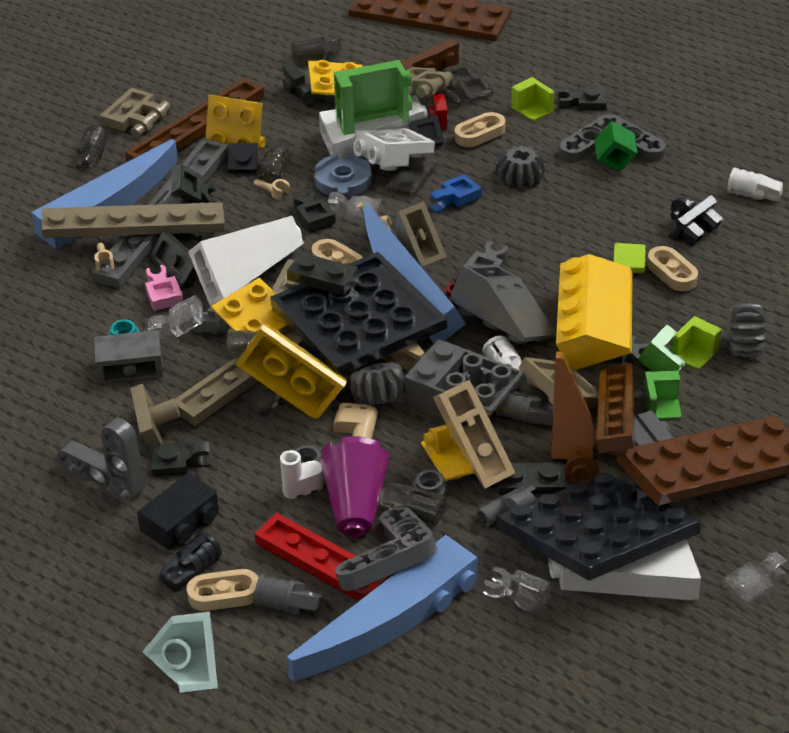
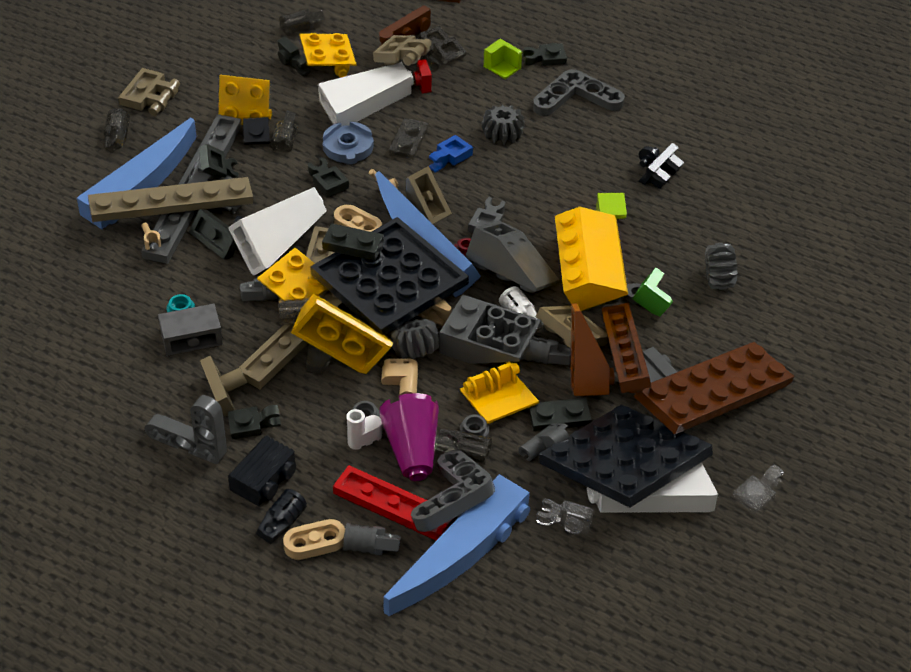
camera: 10 degrees left, 5 degrees up
(162, 291) = (208, 264): bright pink plate -> none
(182, 318) = (231, 290): clear plate -> none
(186, 651) = (294, 599): light aqua slope -> none
(193, 124) = (206, 99): reddish brown plate -> none
(275, 188) = (291, 158): tan hand -> none
(349, 208) = (361, 172): clear plate -> none
(371, 94) = (366, 66): bright green panel -> none
(391, 146) = (388, 112): white plate -> none
(429, 128) = (415, 96): black plate -> none
(474, 433) = (508, 380): tan slope -> none
(479, 129) = (461, 90): tan plate -> none
(580, 469) = (601, 403): reddish brown plate -> none
(615, 146) = (582, 100): green brick -> none
(662, 393) = (657, 329): bright green panel -> none
(674, 271) = (651, 214): tan plate -> none
(697, 342) = (679, 279): lime panel -> none
(751, 184) = (705, 129): white hinge -> none

